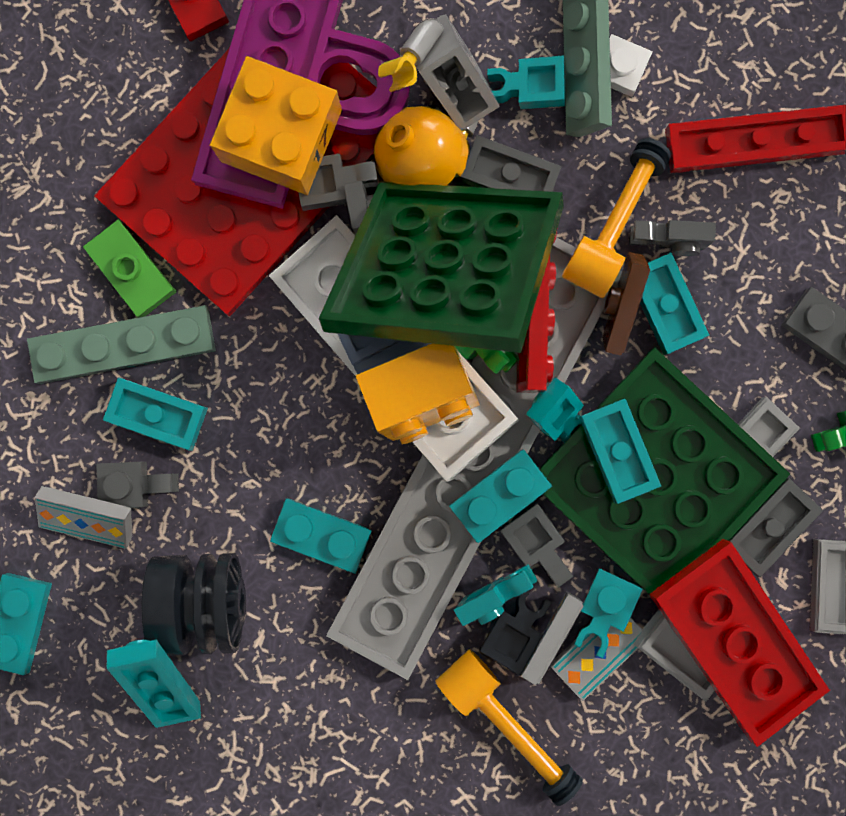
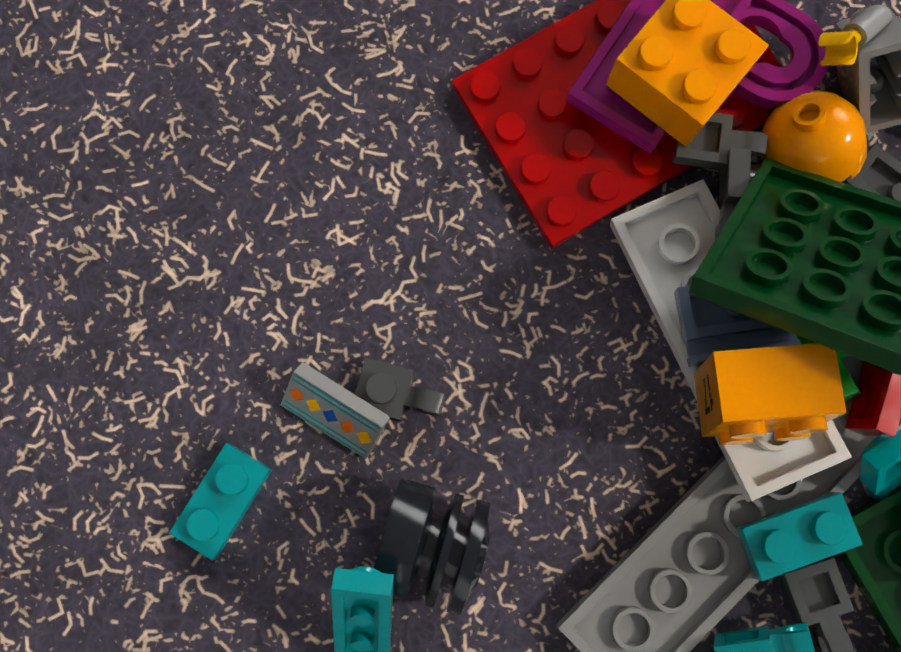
camera: 10 degrees right, 5 degrees down
(121, 344) = (430, 241): sand green plate -> none
(129, 269) = (463, 166): bright green plate -> none
(155, 414) = (444, 324): teal plate -> none
(321, 535) = (581, 514): teal plate -> none

